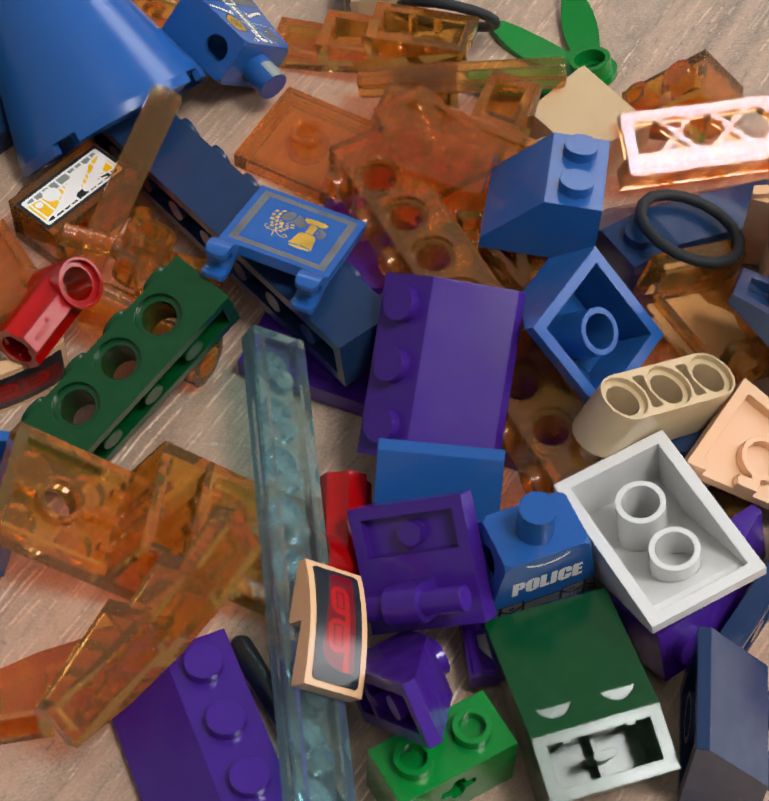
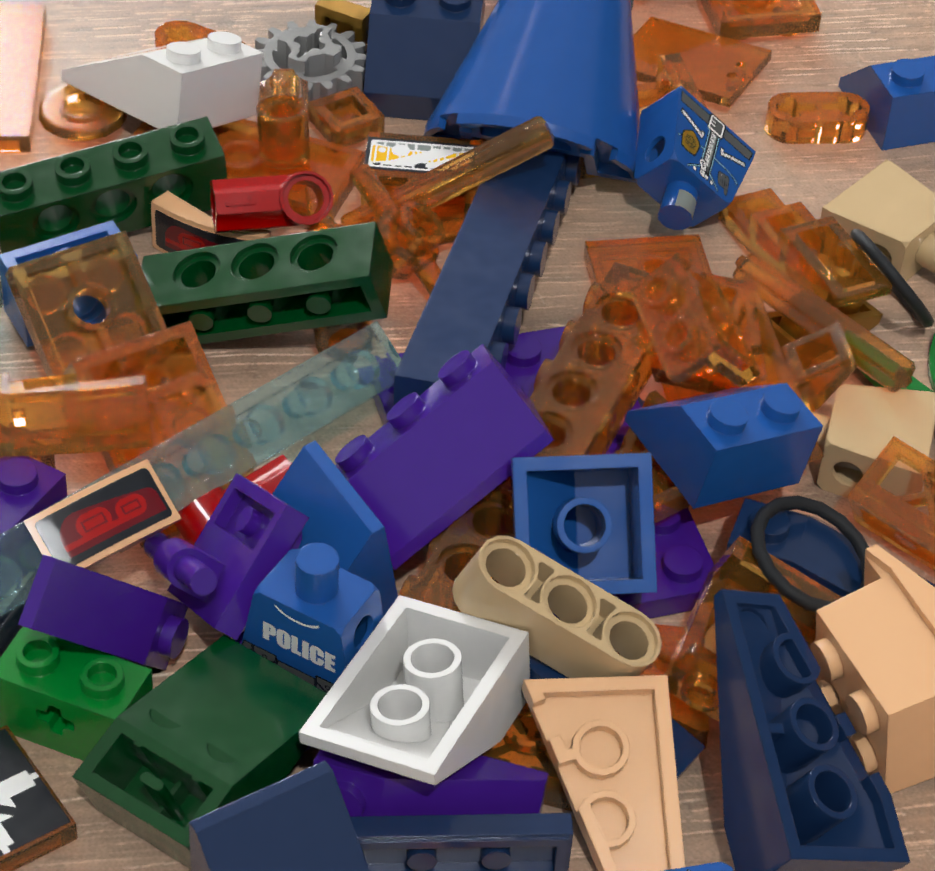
camera: 50 degrees right, 10 degrees down
(287, 237) = (470, 282): blue flag -> none

